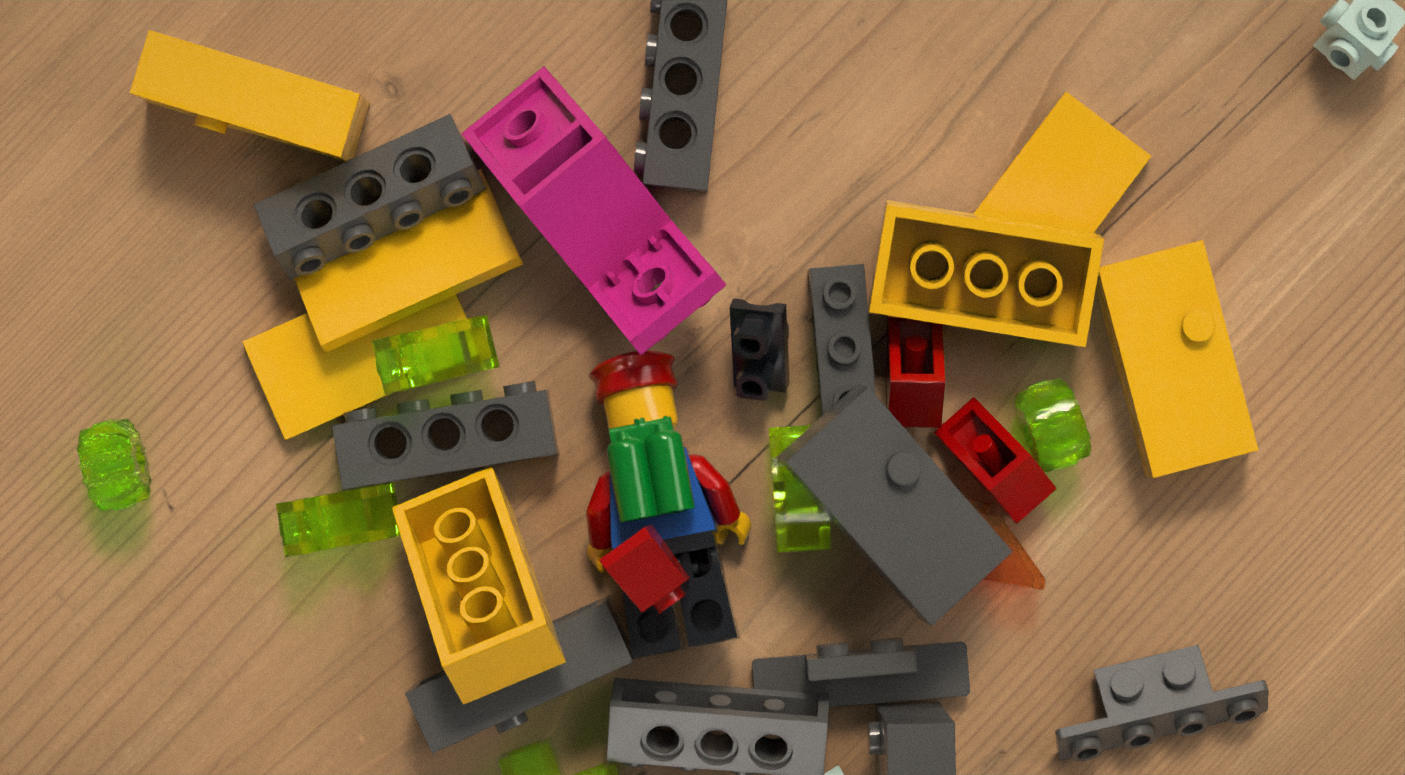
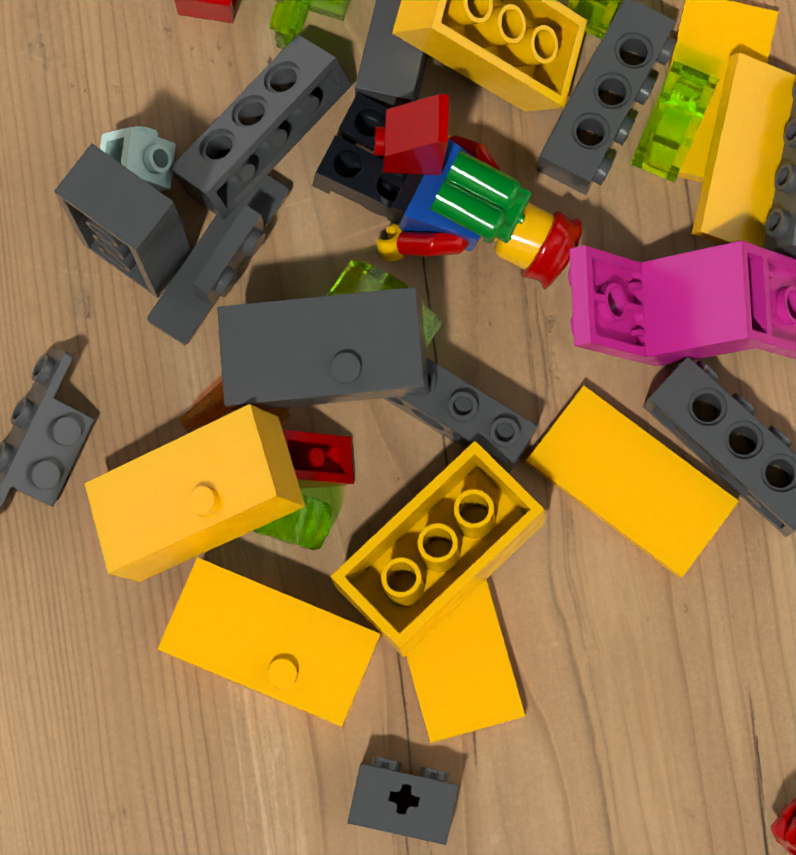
camera: 120 degrees right, 10 degrees down
(759, 349) = (505, 352): black hips -> none
(785, 151) = (632, 482): none -> yellow tile
(915, 372) = (401, 447): red slope -> none
(1103, 521) = (194, 494): none -> yellow brick
(1226, 111) = (425, 822): none -> dark grey brick

